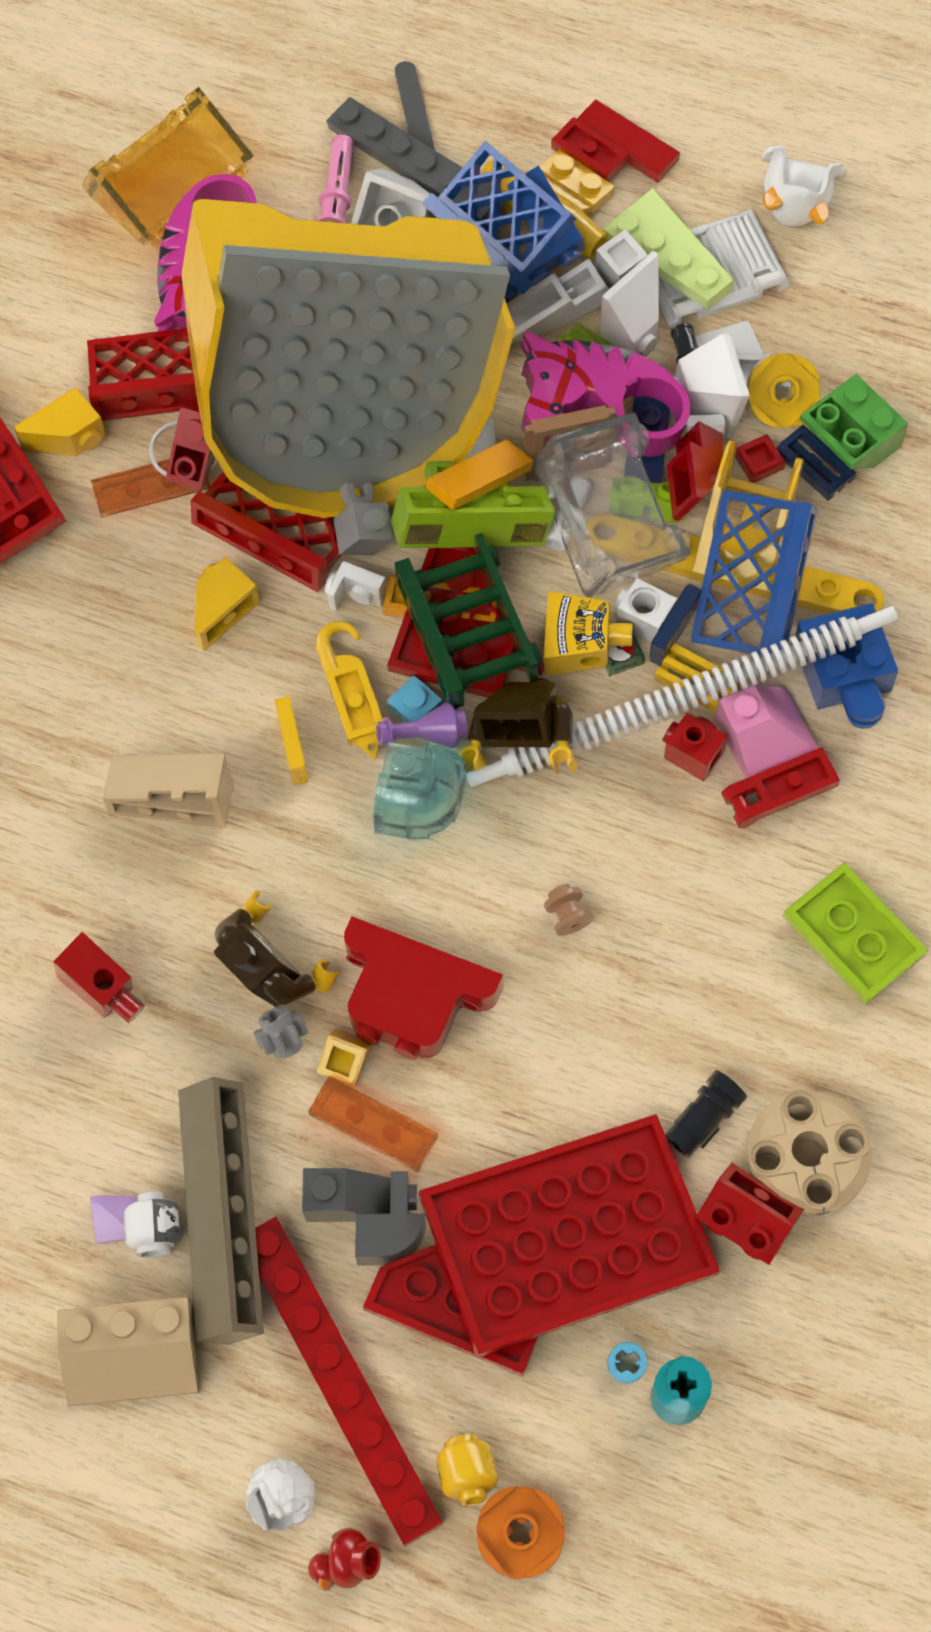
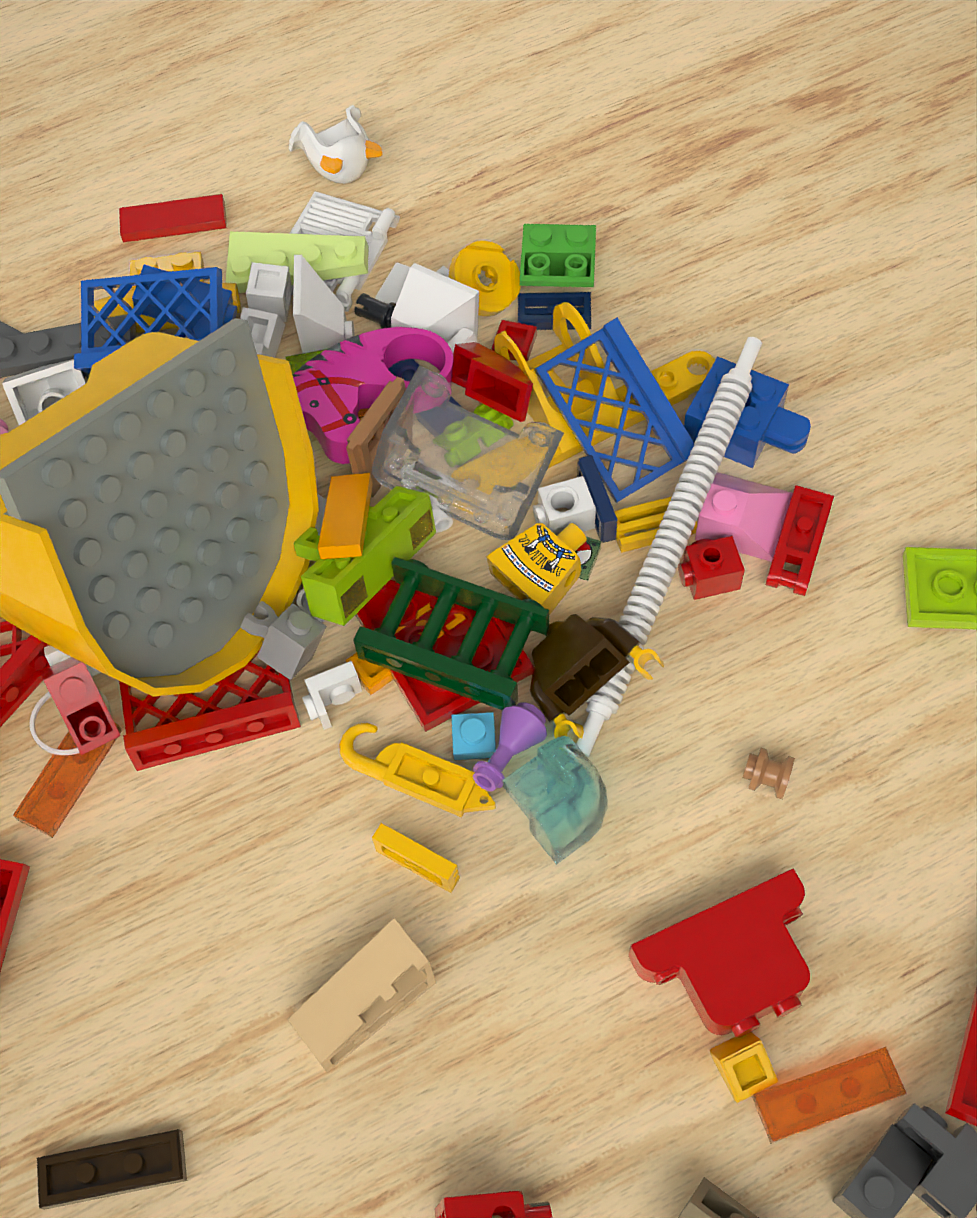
camera: 45 degrees left, 5 degrees down
(221, 601) = (233, 803): yellow slope -> none
(259, 963) = (598, 1062): dark brown torso -> none
(281, 1032) = (681, 1100): light grey gear -> none
(590, 149) = (153, 241): red plate -> none

